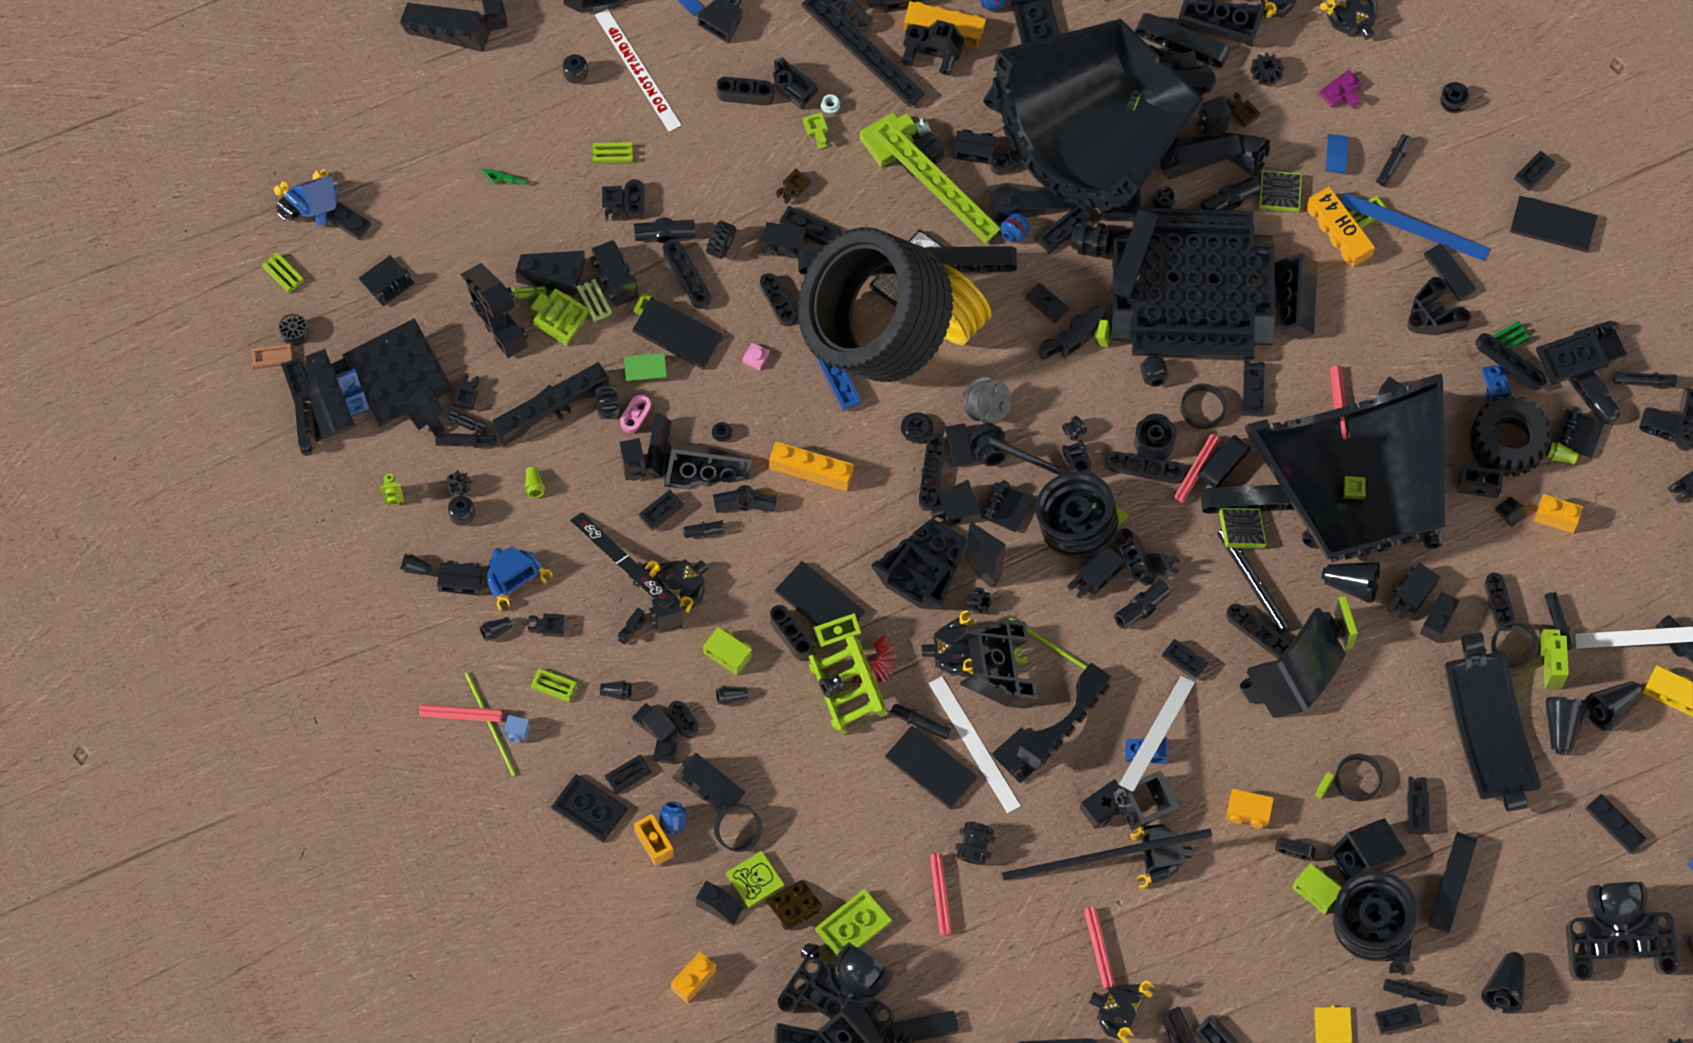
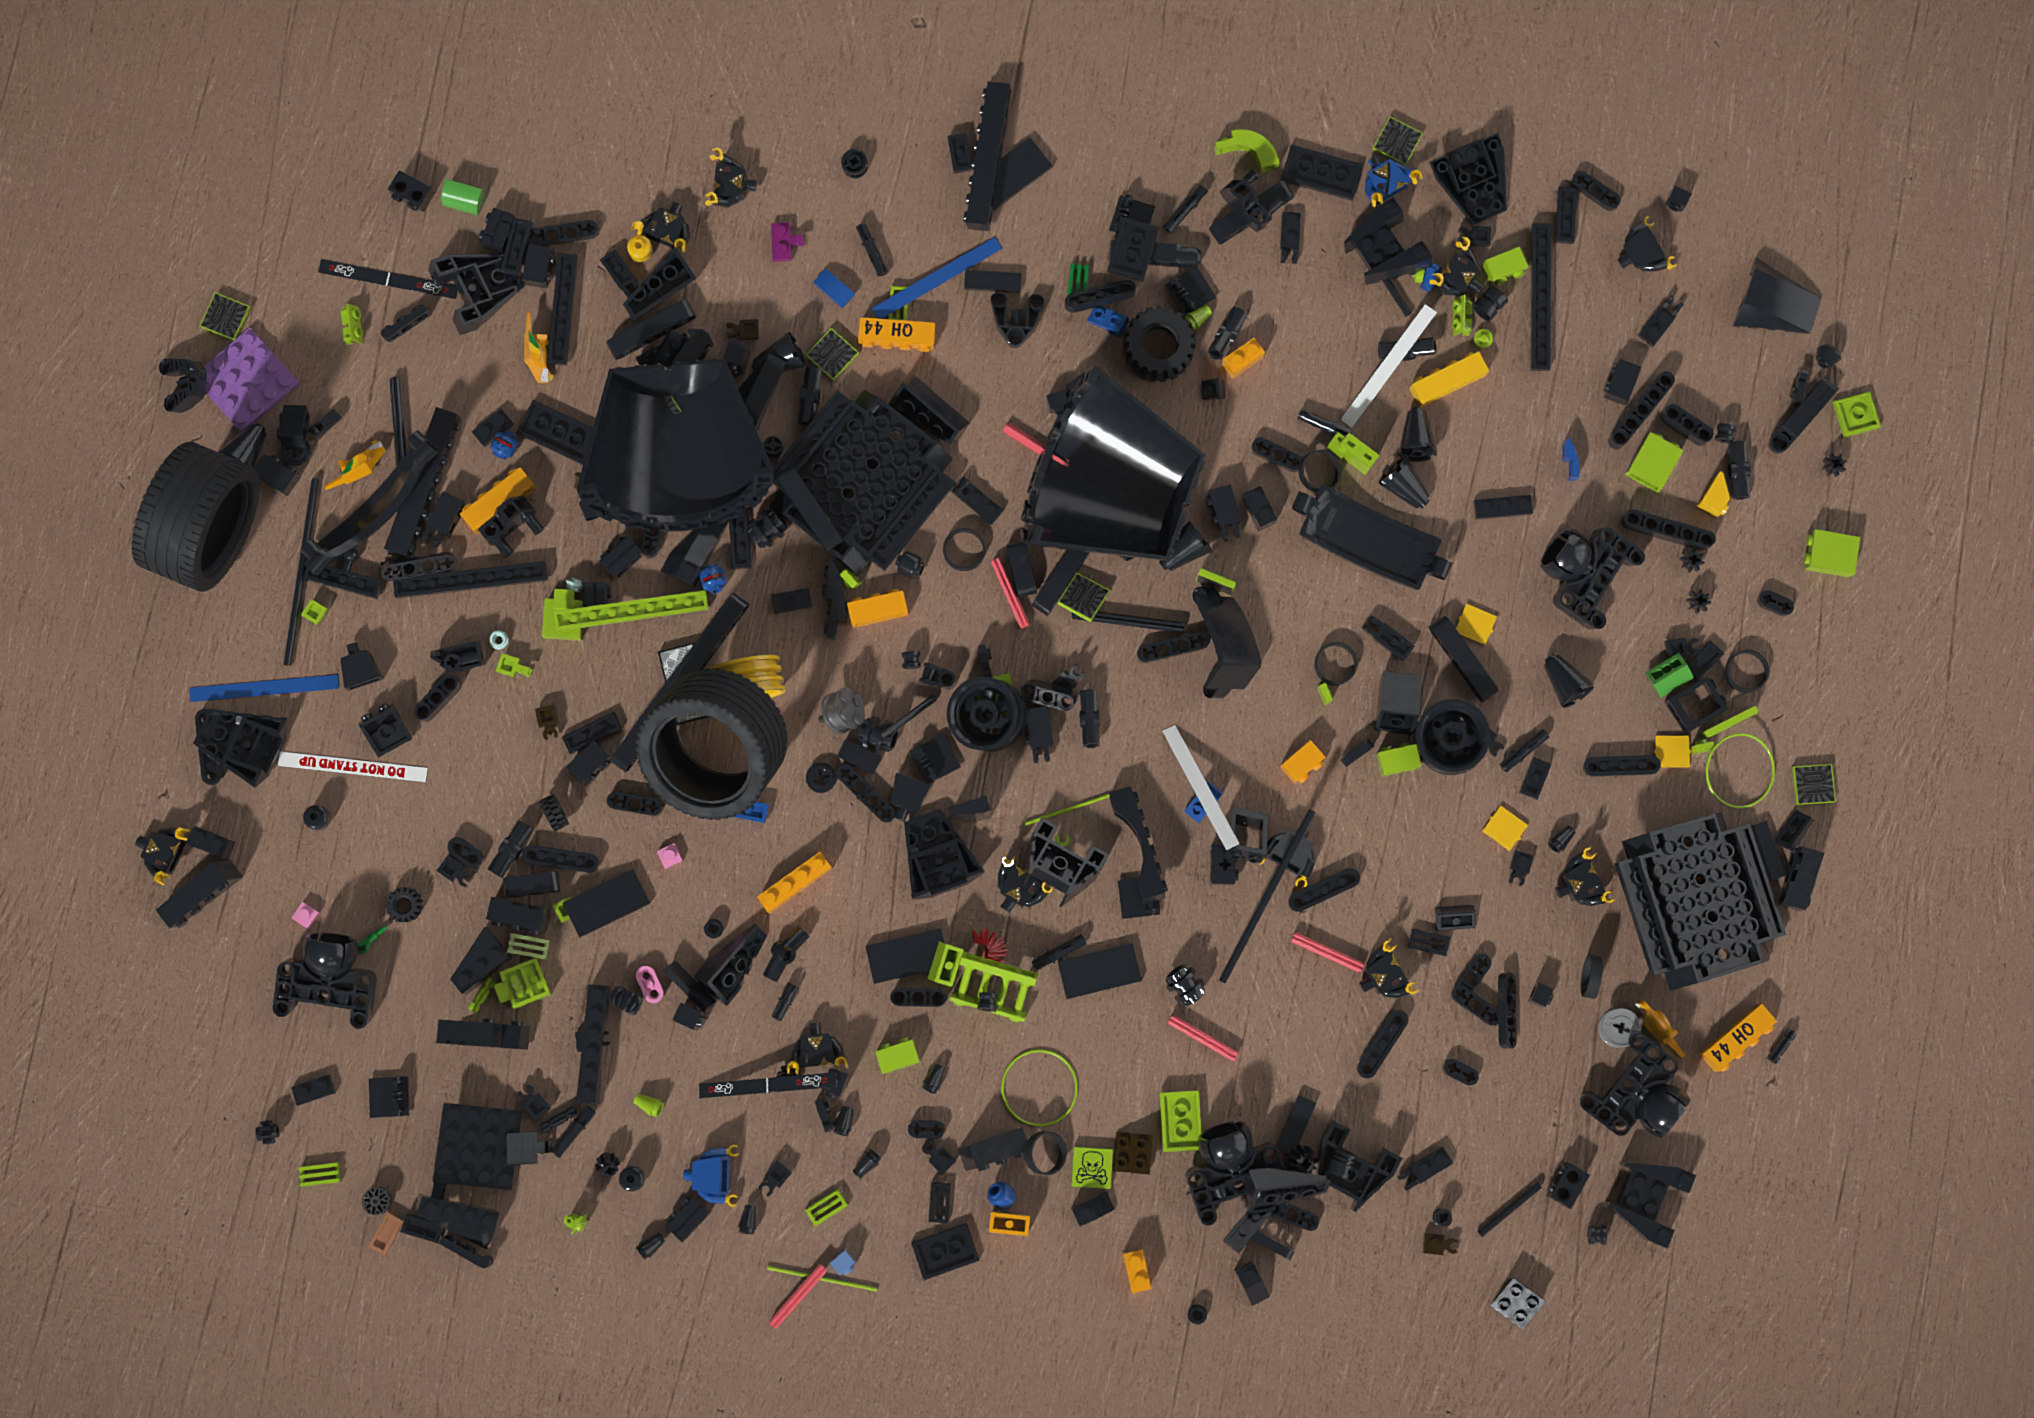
camera: 55 degrees left, 15 degrees up
(312, 197) = (274, 1106): blue torso -> none
(352, 391) = (468, 1194): blue slope -> none
(459, 159) = (326, 967): none -> black beam
(488, 117) = (305, 915): none -> bright pink plate
(554, 172) = (395, 913): none -> black tyre
(612, 149) = (420, 826): lime tile -> none
(636, 647) = (843, 1123): none -> black cone
(645, 366) = (616, 948): bright green brick -> none
(647, 266) = (531, 884): none -> black beam
(654, 722) = (914, 1154): black slope -> none
(661, 510) = (744, 1023): black plate -> none
(687, 69) = (384, 729): none -> black plate
(790, 751) = (1003, 1080): none -> lime piece
(810, 950) = (1179, 1168): black plate -> none
(974, 744) = (1104, 924): white sticker -> none
(978, 600) = (996, 837): black gear -> none
(1096, 372) = (877, 608): none -> light orange brick
(1125, 484) = (985, 656): none -> black plate
(1146, 464) = (983, 633): black beam -> none
(1152, 905) = (1324, 890): none -> black plate
(1162, 429) = (964, 595): black brick -> none
(1184, 659) = (1154, 719): black plate -> none
(1267, 69) = (731, 281): black gear -> none
(1354, 487) = (1114, 490): lime plate -> none
(1480, 481) = (1178, 394): black brick -> none
(1492, 873) = (1475, 624): none -> yellow piece
(1551, 192) = (988, 156): none -> black brick
(1568, 486) = (1227, 333): none -> black piece

